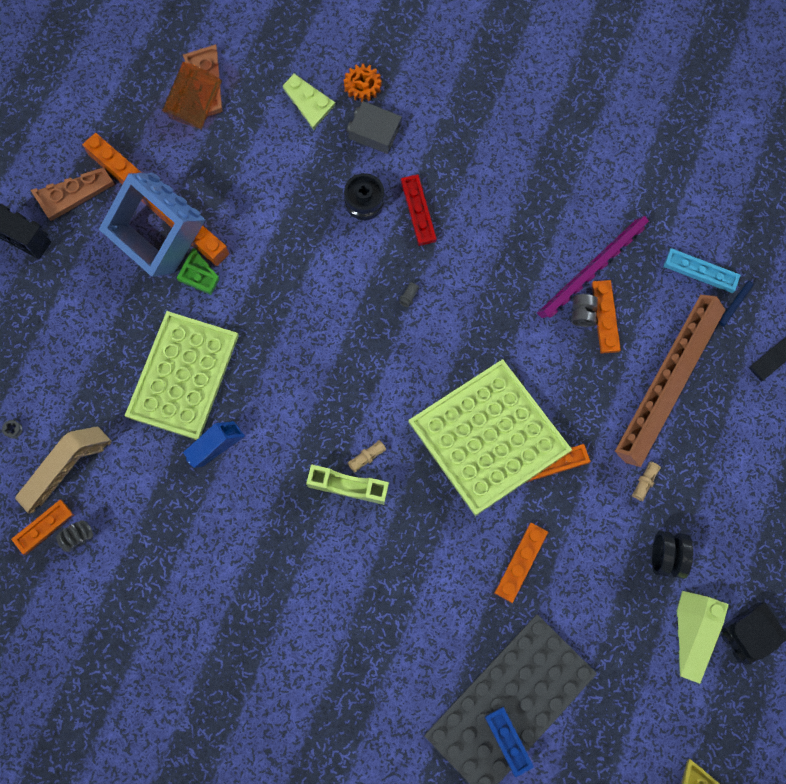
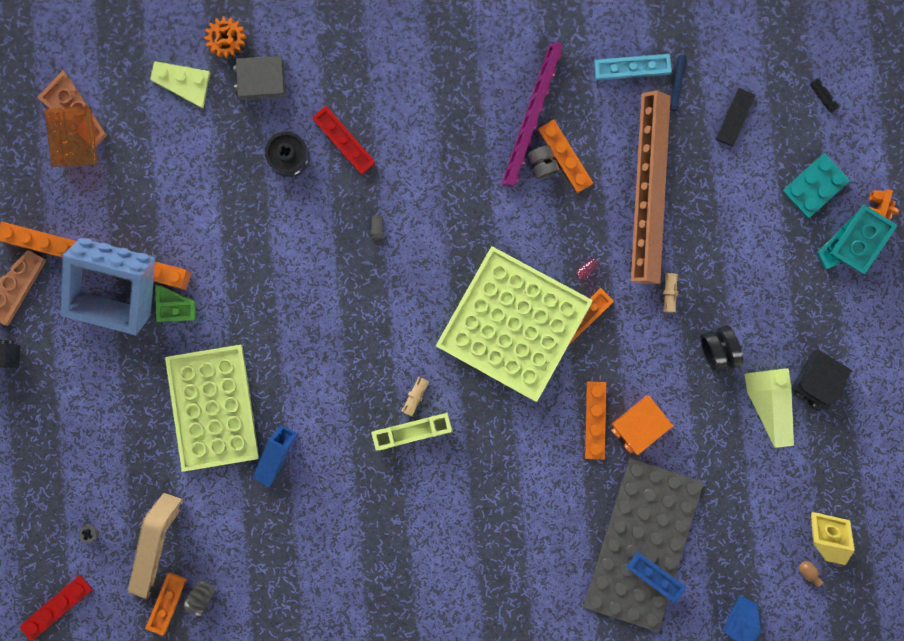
camera: 20 degrees left, 10 degrees up
(562, 588) = (641, 425): none -> orange brick
(579, 421) = (587, 268): none -> clear pink pin

